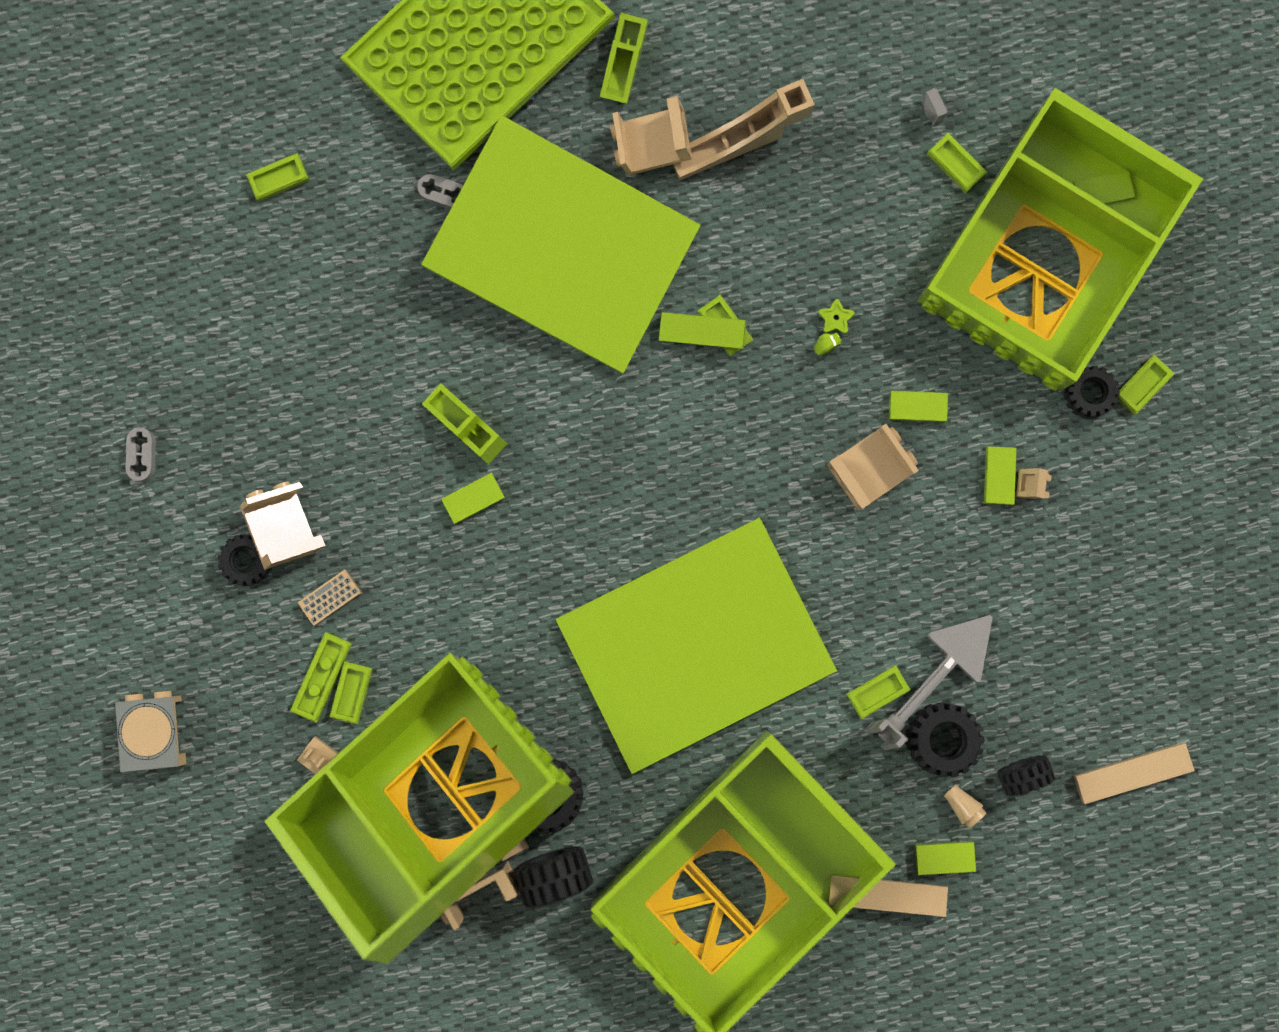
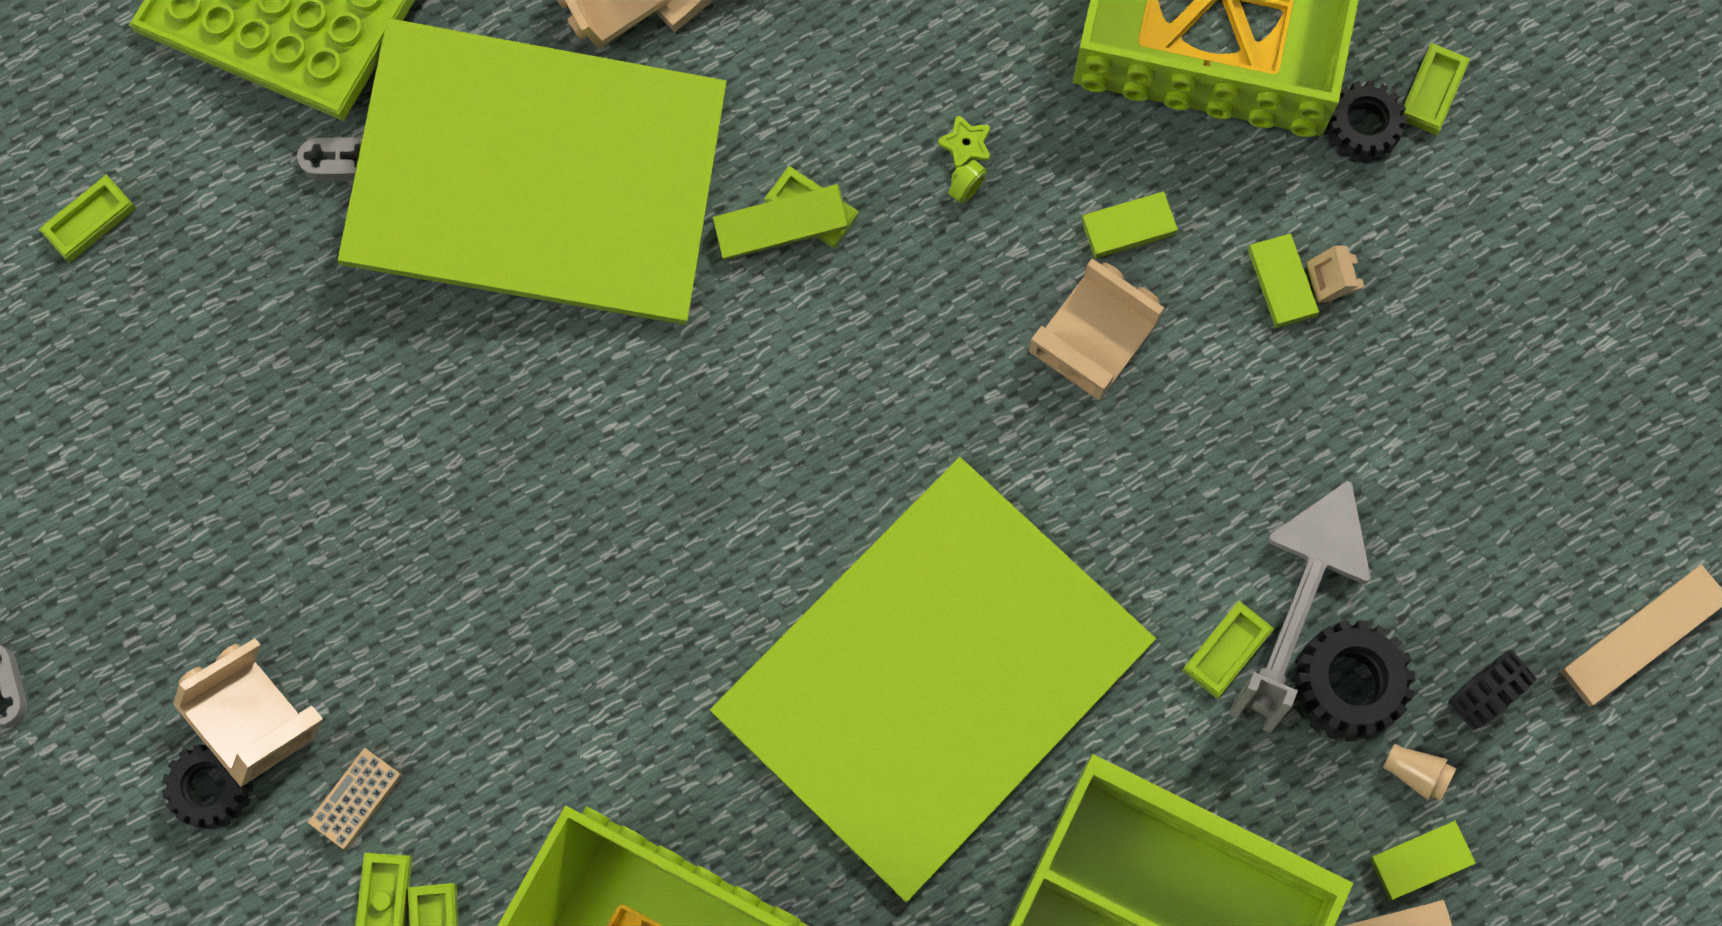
camera: 20 degrees left, 10 degrees down
(464, 423) = (478, 471): lime slope -> none
(473, 498) = (526, 576): lime tile -> none

